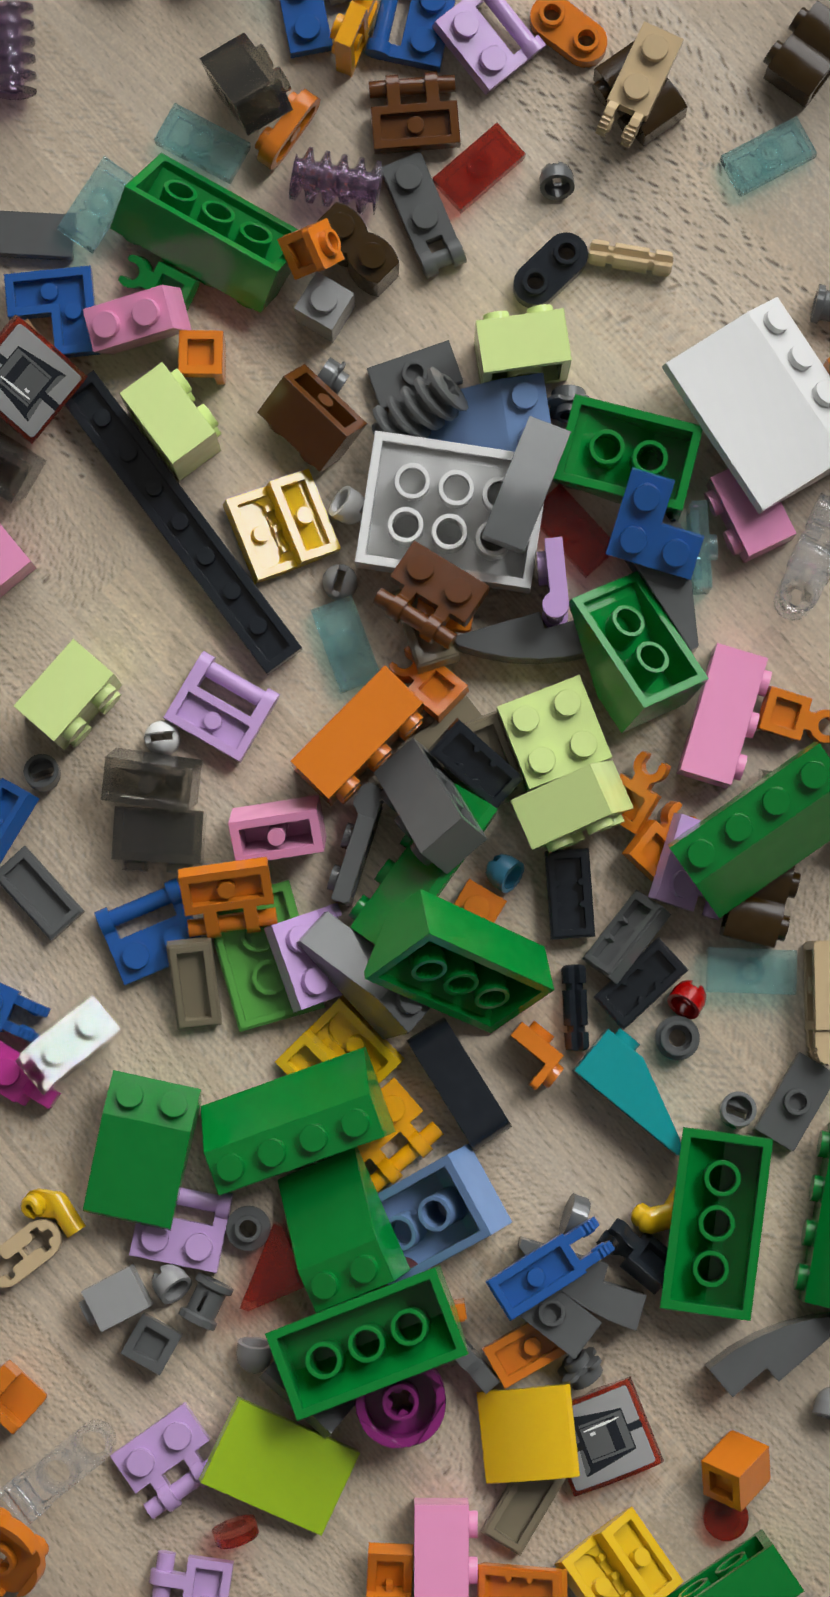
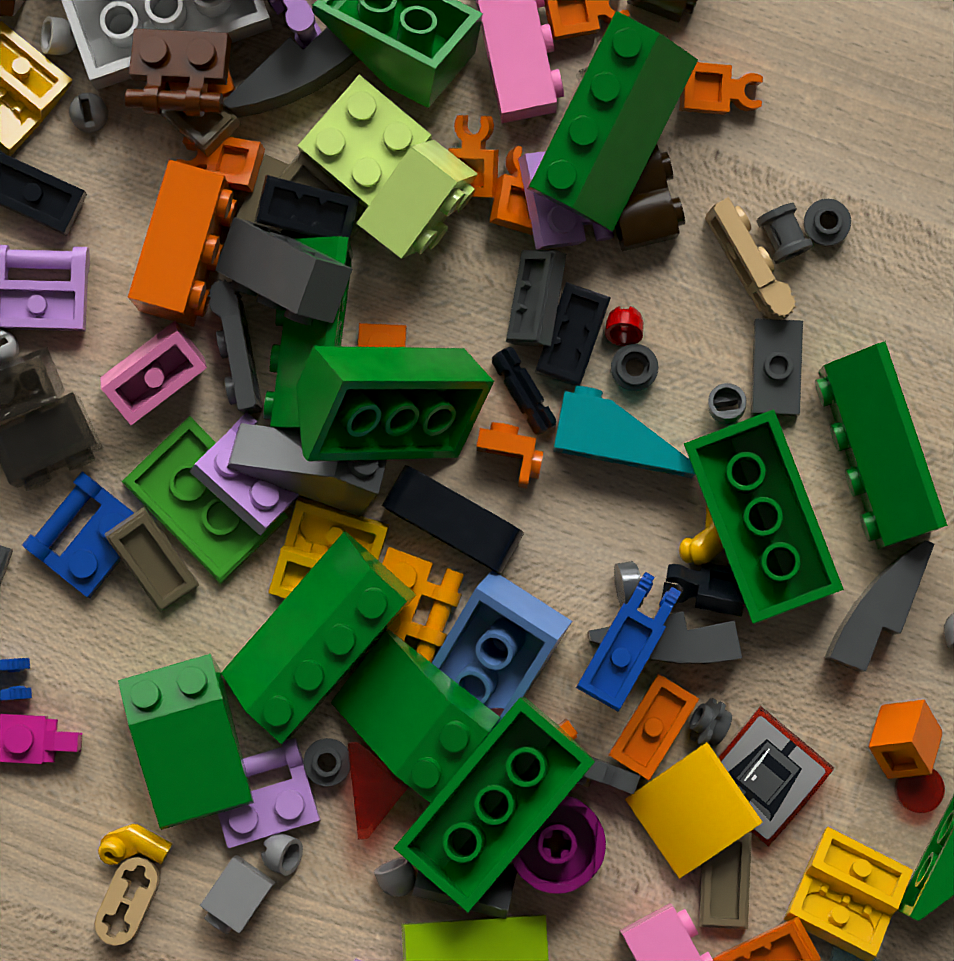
camera: 25 degrees left, 0 degrees up
(67, 1045) = (62, 681): clear smoke brick -> none
(151, 1343) = (294, 919): dark grey plate -> none
(206, 1301) = (324, 852): dark grey bush -> none
(224, 888) = (132, 451): orange plate -> none
(345, 643) = (123, 165): clear light blue plate -> none
(504, 872) = (389, 299): dark azure hinge -> none
(563, 1322) = (668, 688): dark grey plate -> none
(569, 894) = (461, 287): black plate -> none
(751, 971) = (670, 267): clear light blue plate -> none

